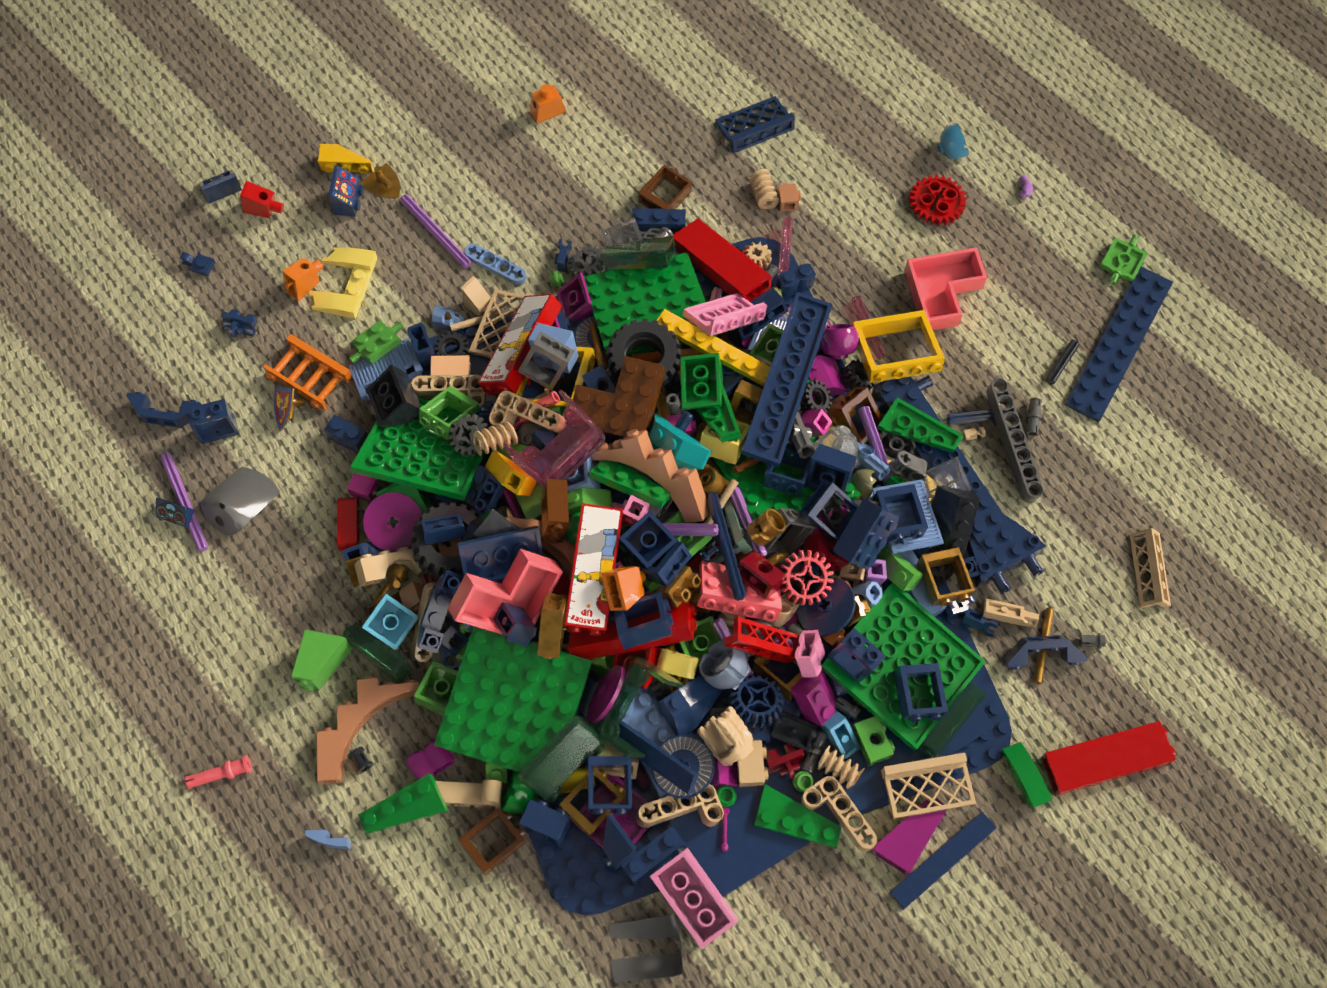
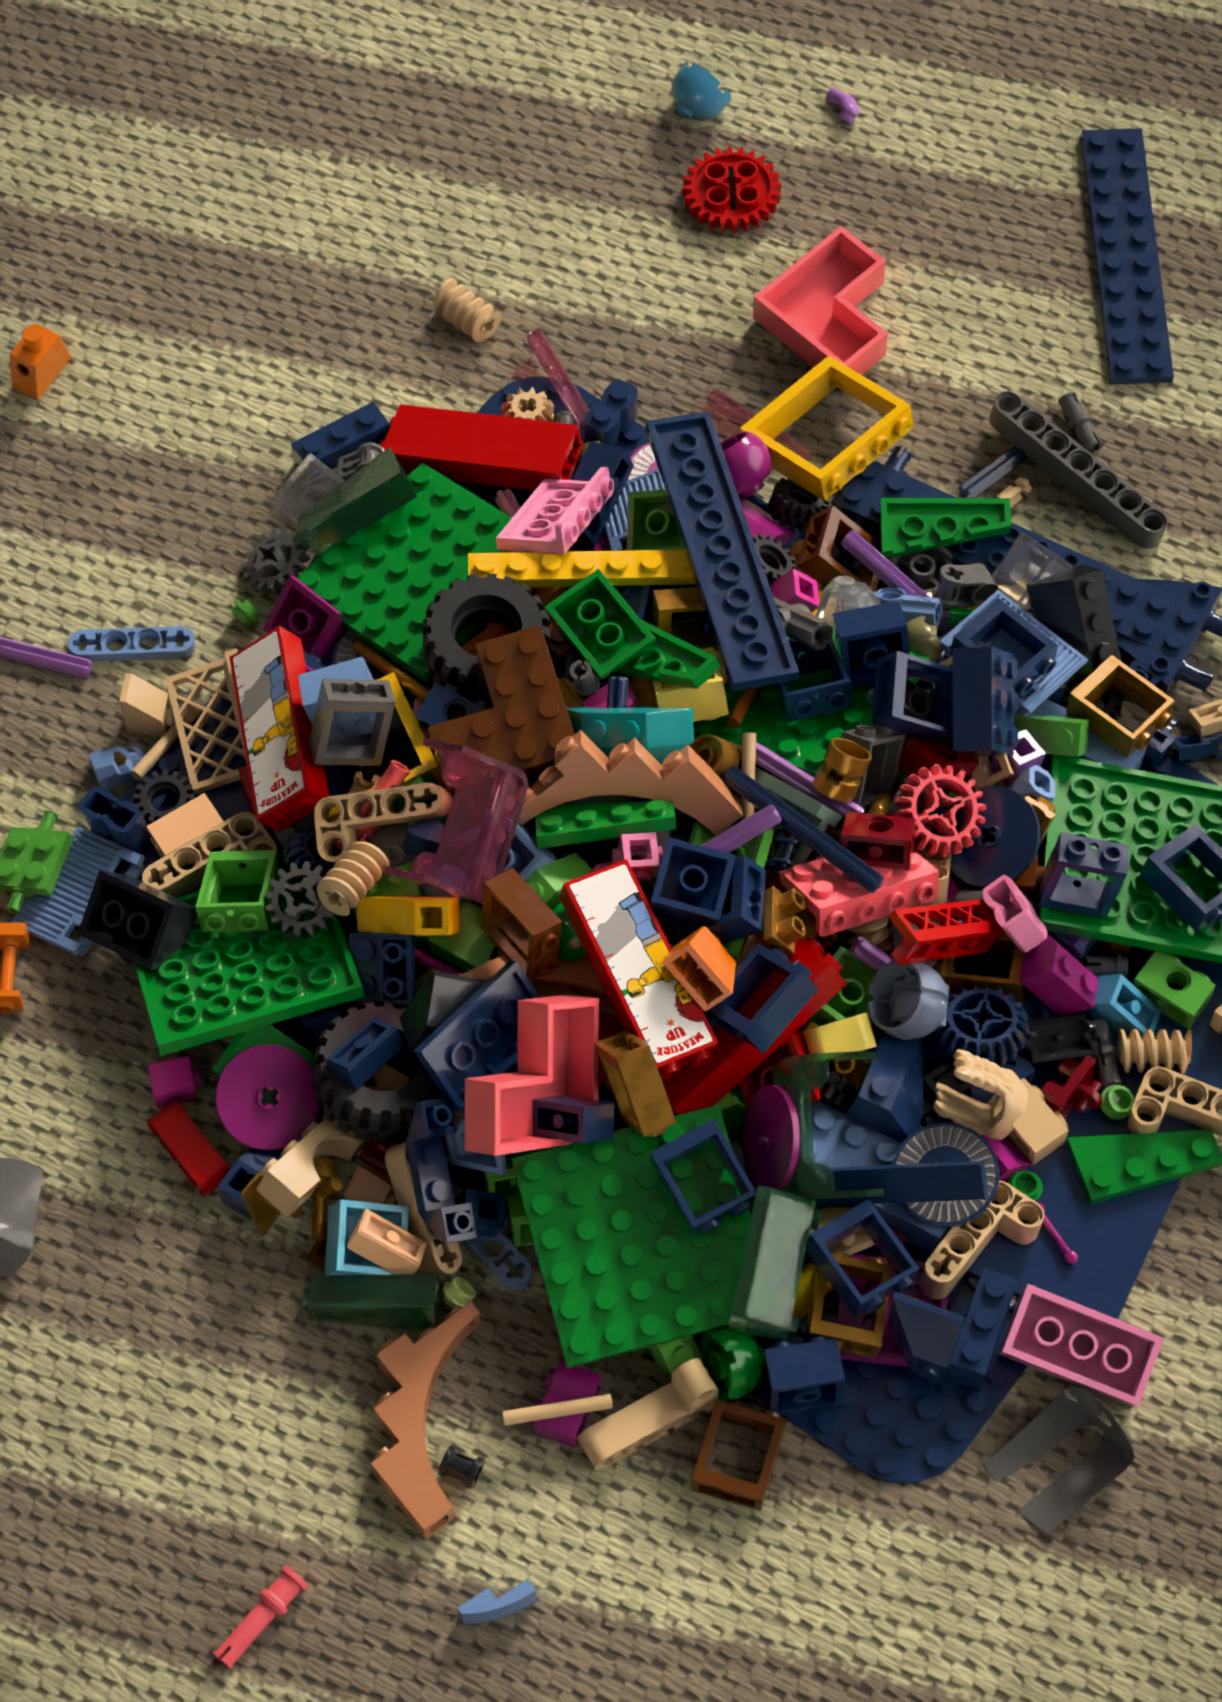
camera: 30 degrees left, 5 degrees down
(318, 659) = (295, 1359): bright green slope -> none
(345, 433) = (89, 1020): dark blue brick -> none
(395, 629) = (386, 1244): none -> light nougat slope
(409, 804) = (579, 1484): green wing -> none
(418, 672) = (458, 1292): none -> yellowish green plate
(419, 762) = (557, 1409): none -> tan bar
(436, 688) = (511, 1294): bright green slope -> none
(549, 671) = (688, 1144): none -> dark blue window
(562, 258) = (230, 578): dark blue plate -> none
(650, 201) = (307, 365): reddish brown window -> none
(760, 132) = (399, 228): dark blue fence -> none
(789, 197) = (512, 301): nougat brick -> none
(1062, 361) = (1066, 324): black axle -> none
(1123, 260) = (1052, 134): bright green plate -> none

